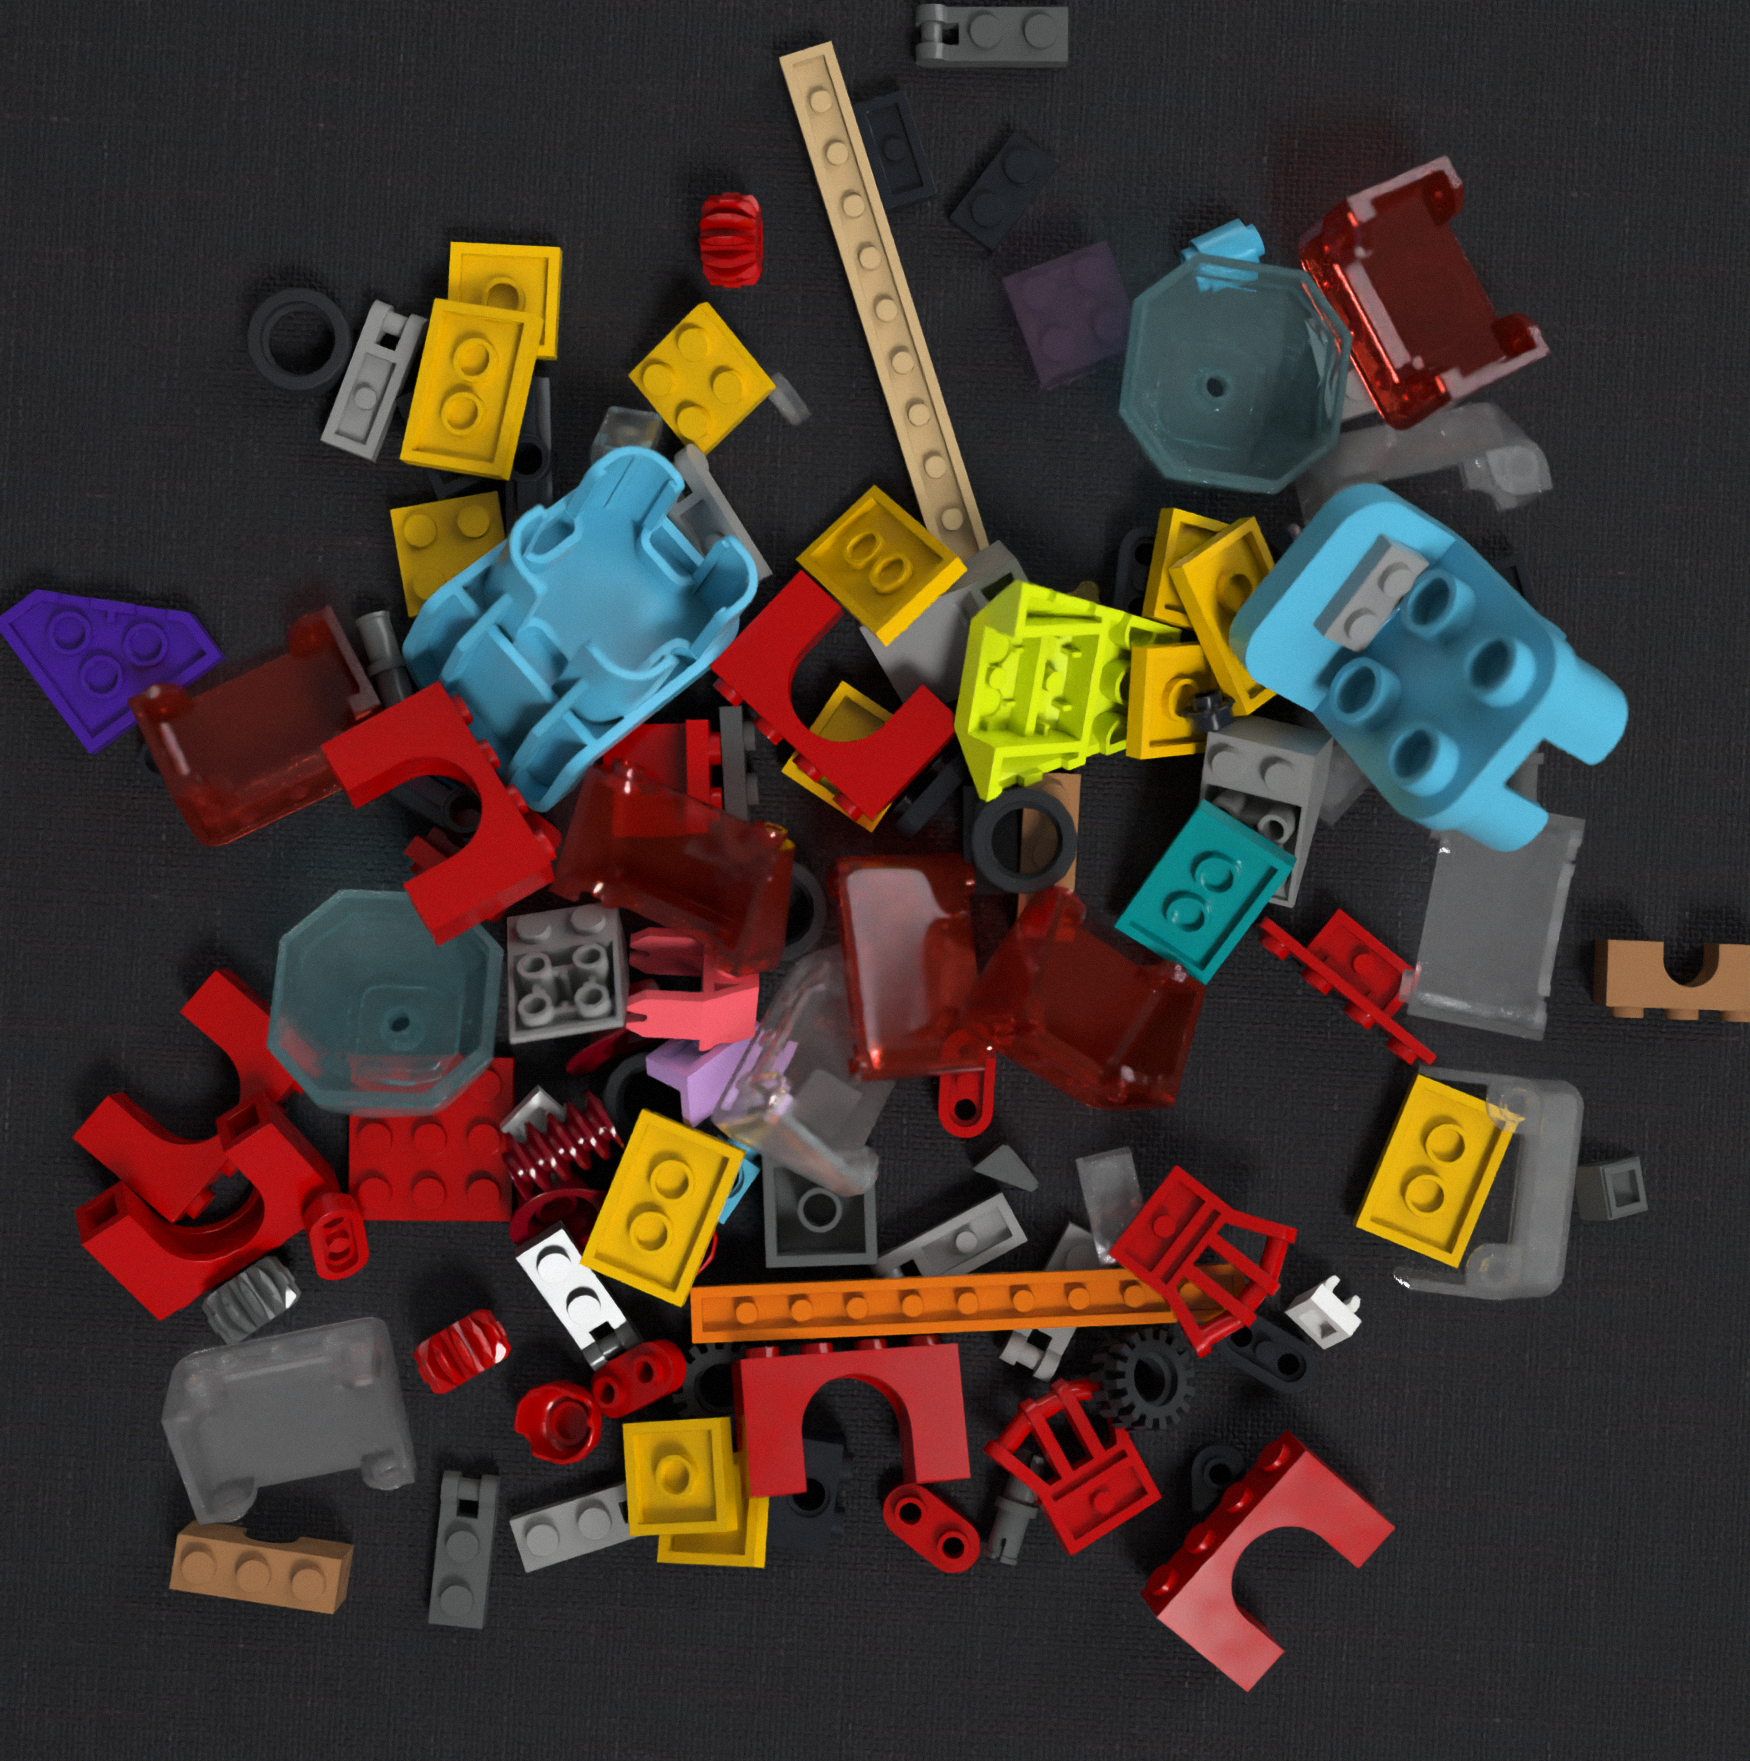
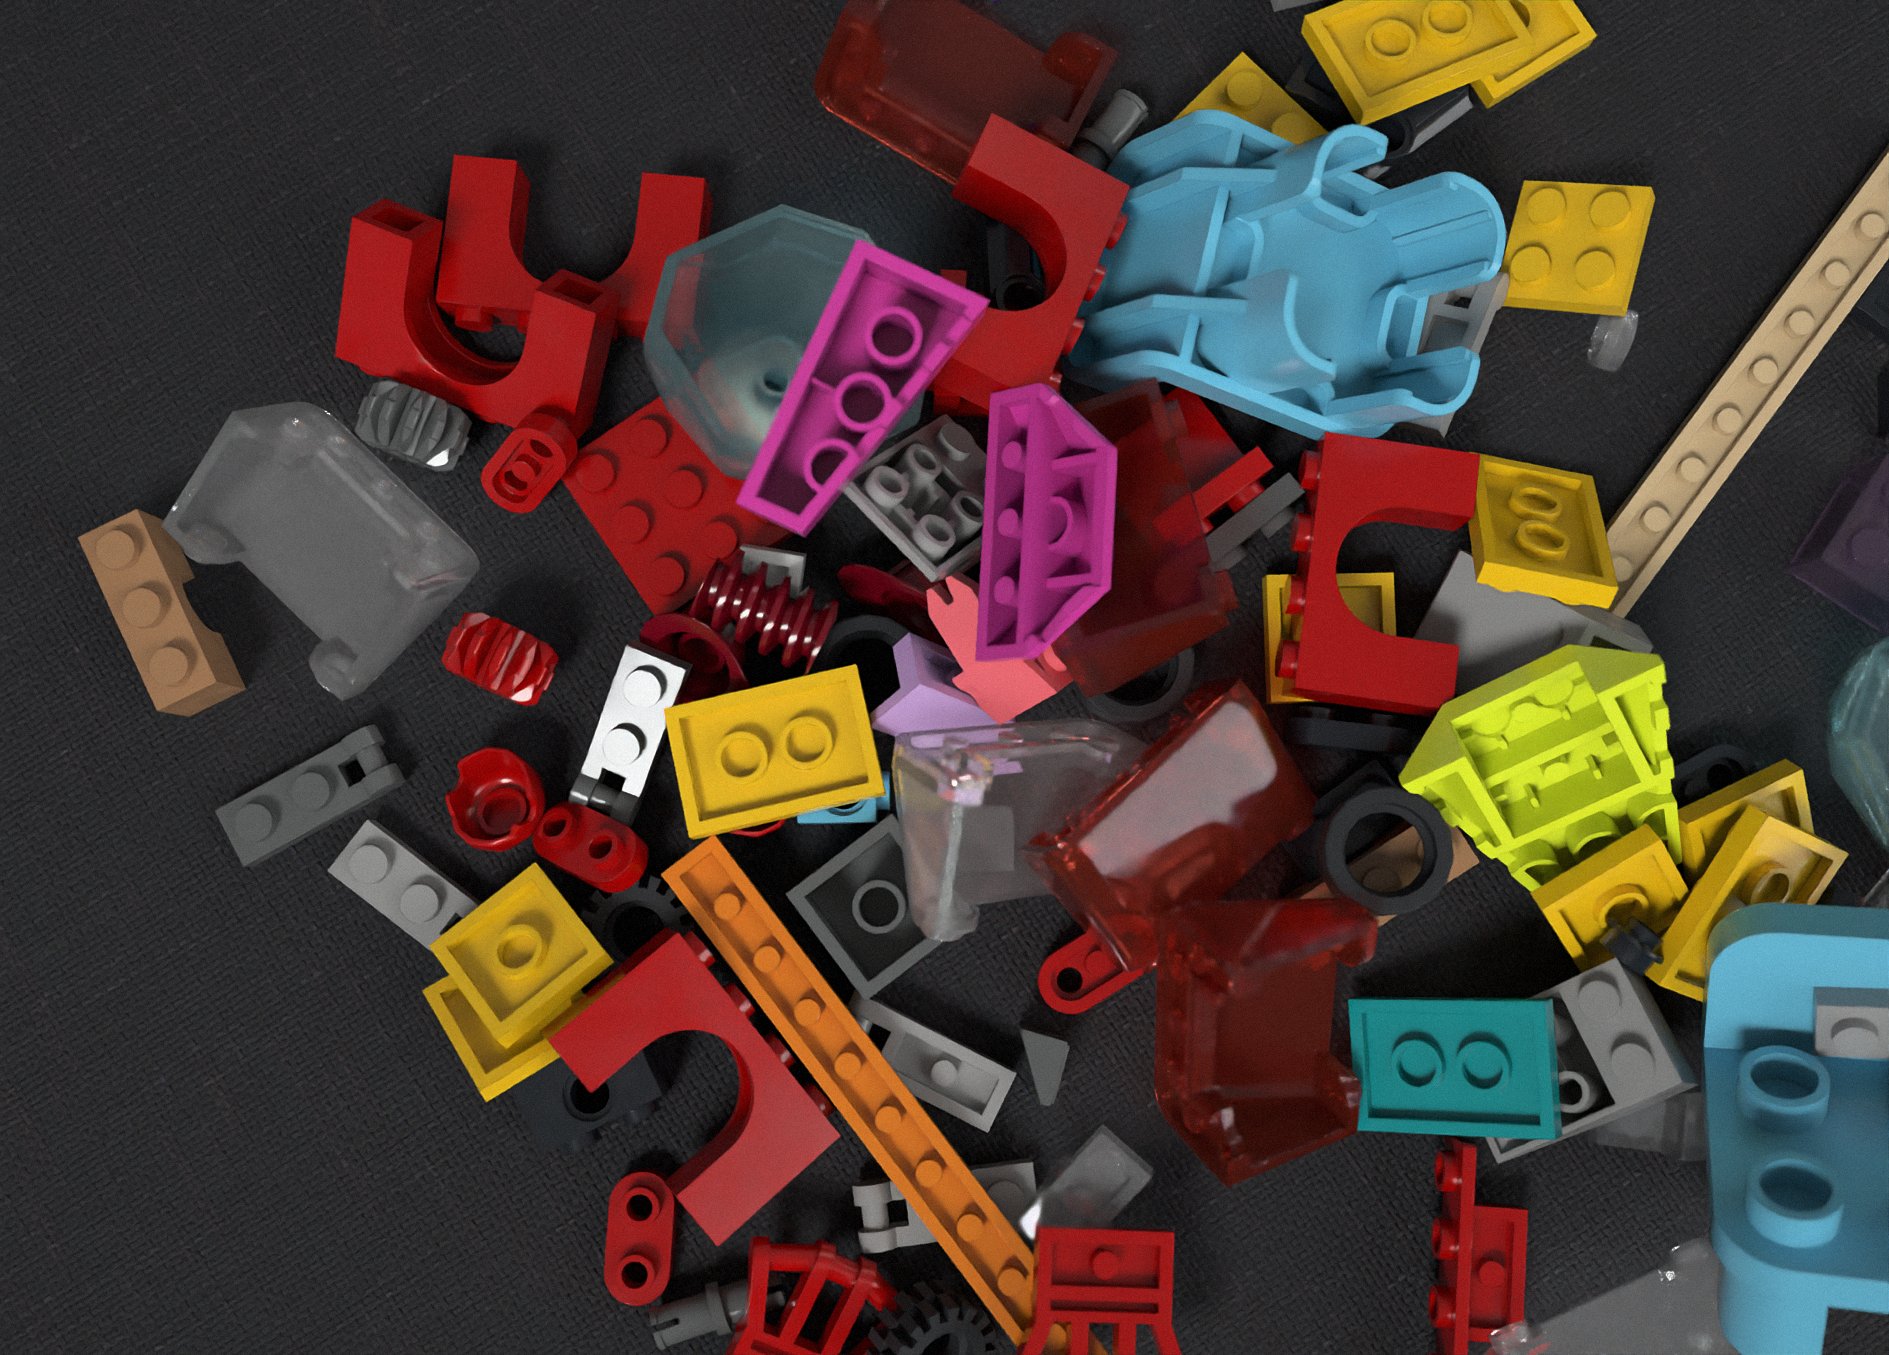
camera: 50 degrees right, 5 degrees down
(452, 984) = (861, 373): none -> dark pink wedge
(635, 924) = (1042, 522): none -> dark pink wedge
(731, 240) = (1725, 182): red gear -> none

